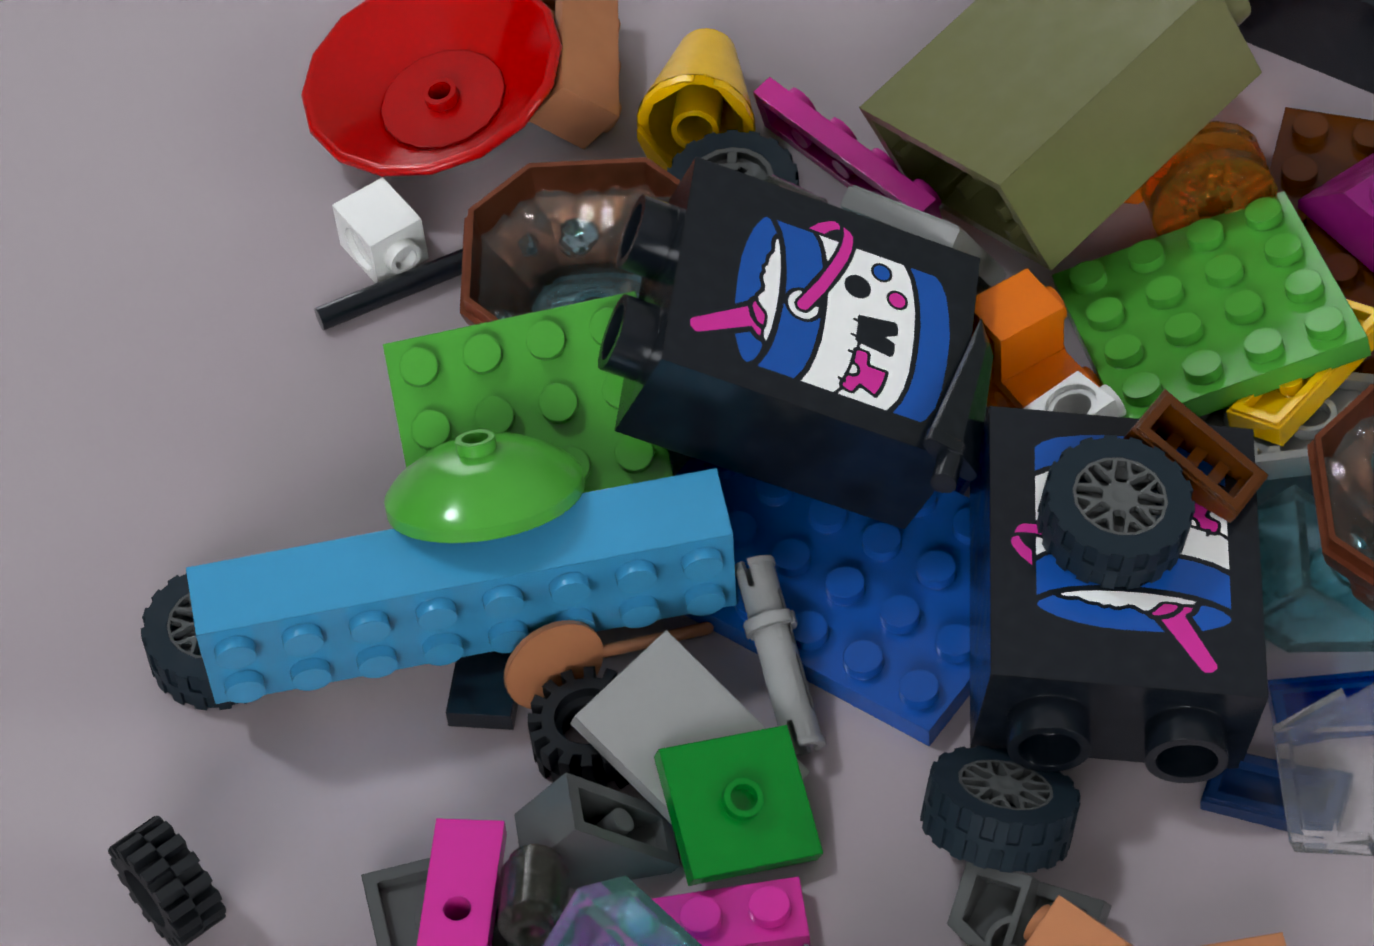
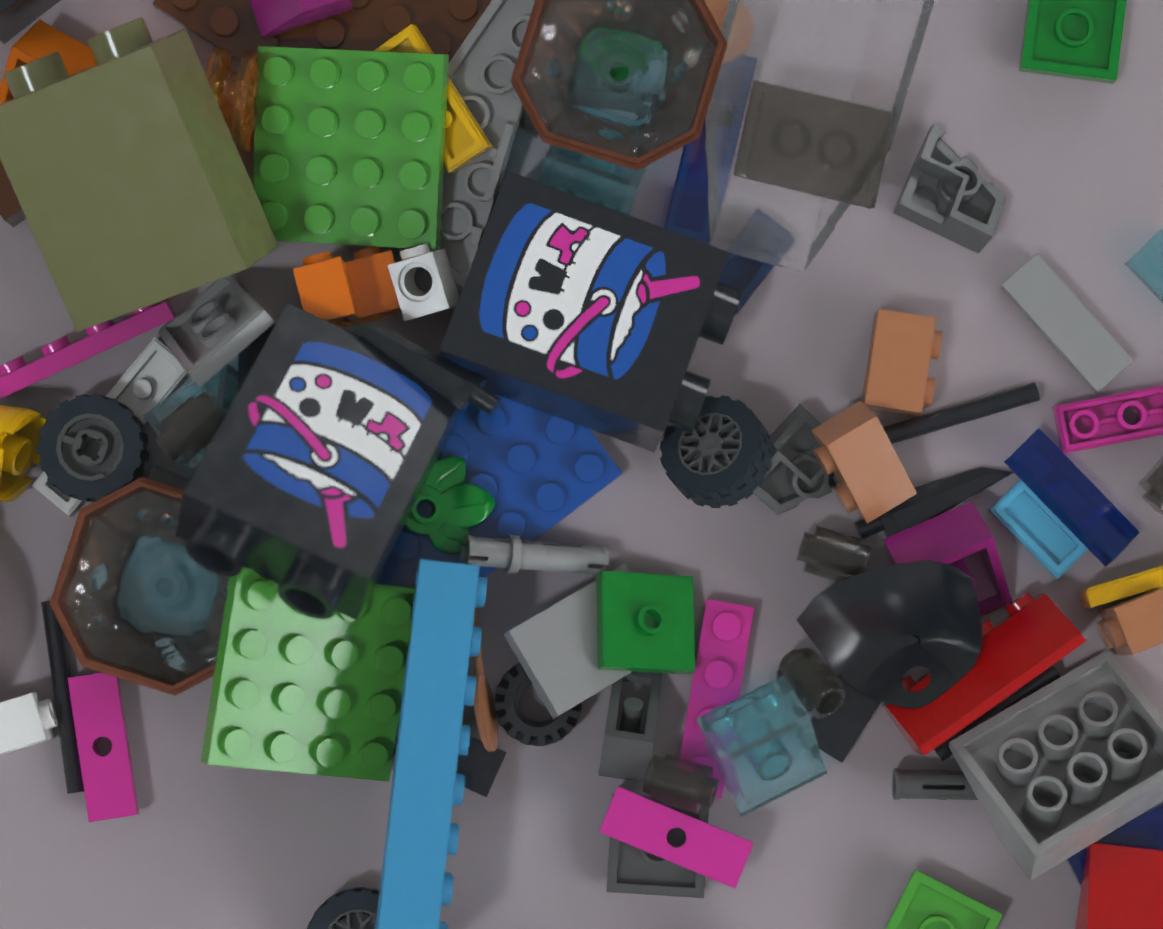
camera: 70 degrees left, 35 degrees up
(379, 317) = (109, 777): none -> dark pink tile
(483, 488) = (399, 735): bright green dish -> none
(810, 546) = (453, 506): none -> green plate
(1094, 488) = (567, 299): black wheel -> none
(1186, 430) = (506, 247): reddish brown slope -> none

